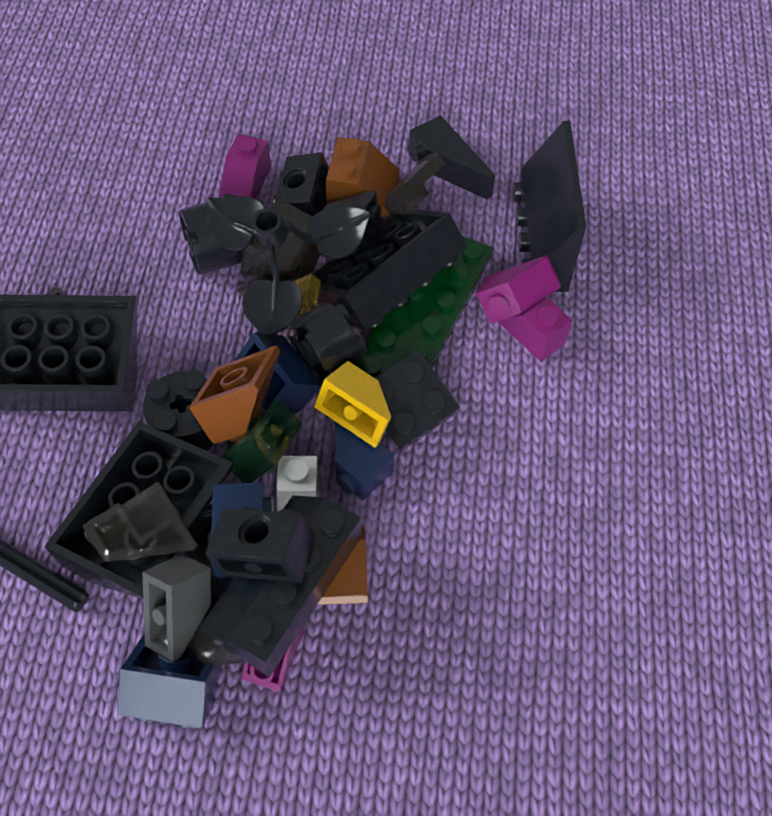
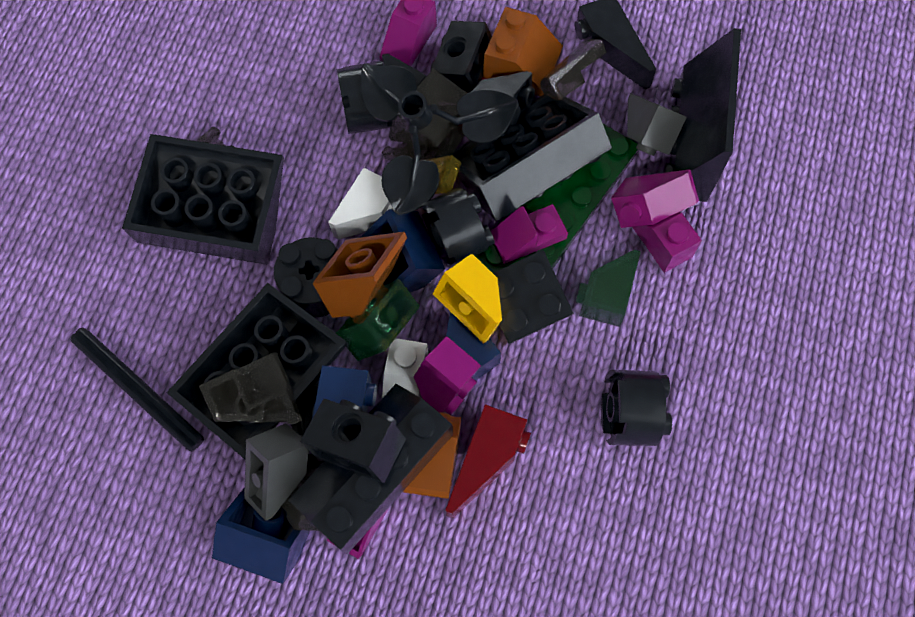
camera: 15 degrees right, 10 degrees up
(223, 338) = (360, 207): none -> white slope
(344, 478) = (446, 376): none -> magenta slope
(398, 338) = (528, 233): none -> magenta slope
(400, 560) = (489, 454): none -> dark red slope
(490, 383) = (609, 290): none -> clear green slope
(502, 224) = (652, 125): none -> dark grey slope
(540, 486) = (635, 408): none -> black brick

